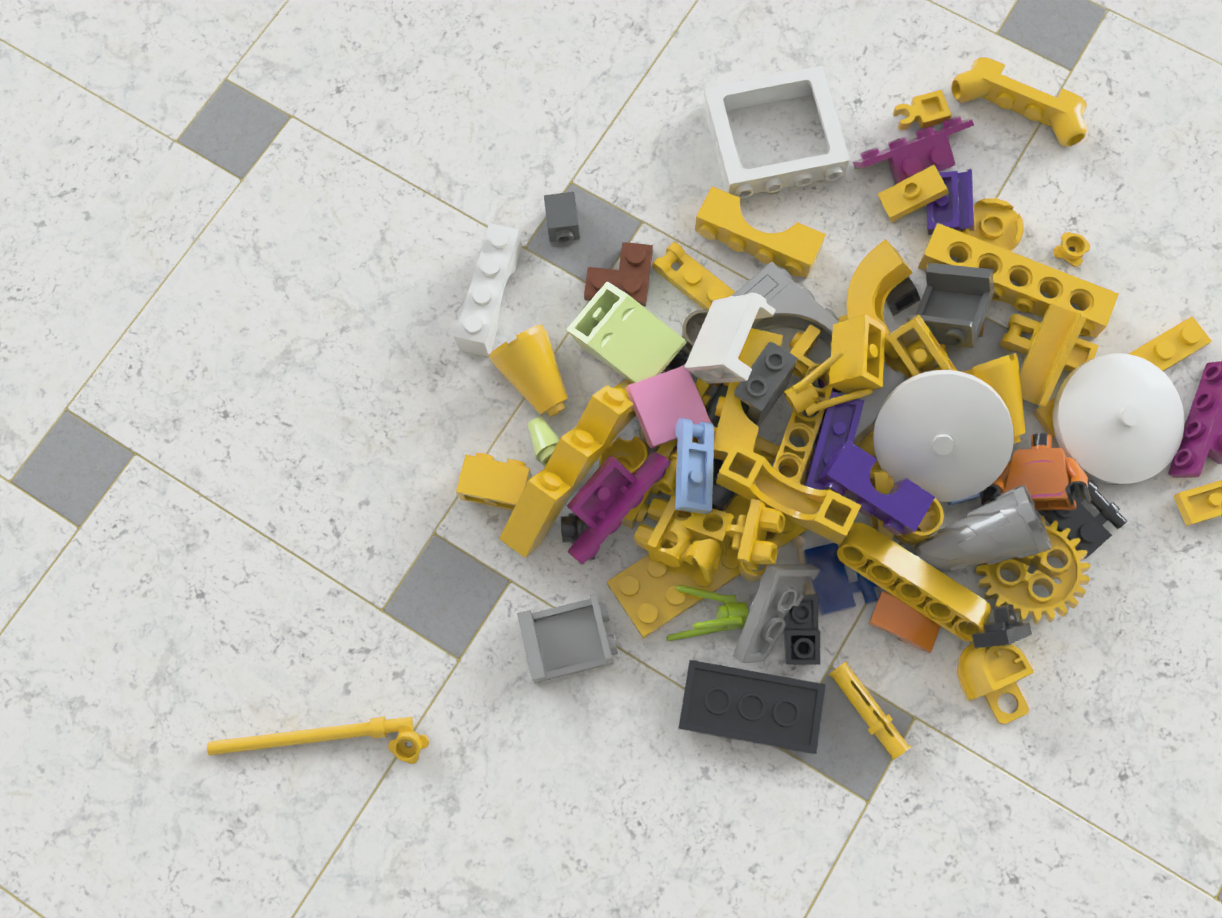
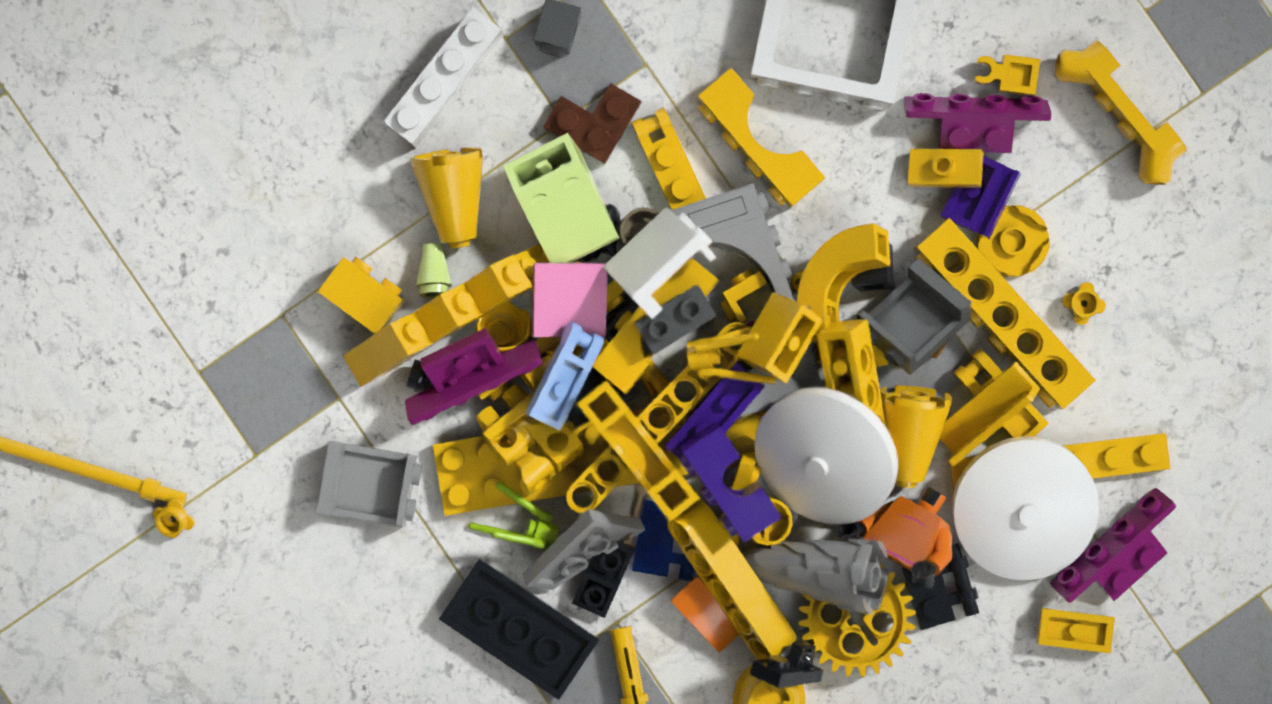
camera: 25 degrees right, 15 degrees up
(751, 533) = (585, 474): yellow hips -> none

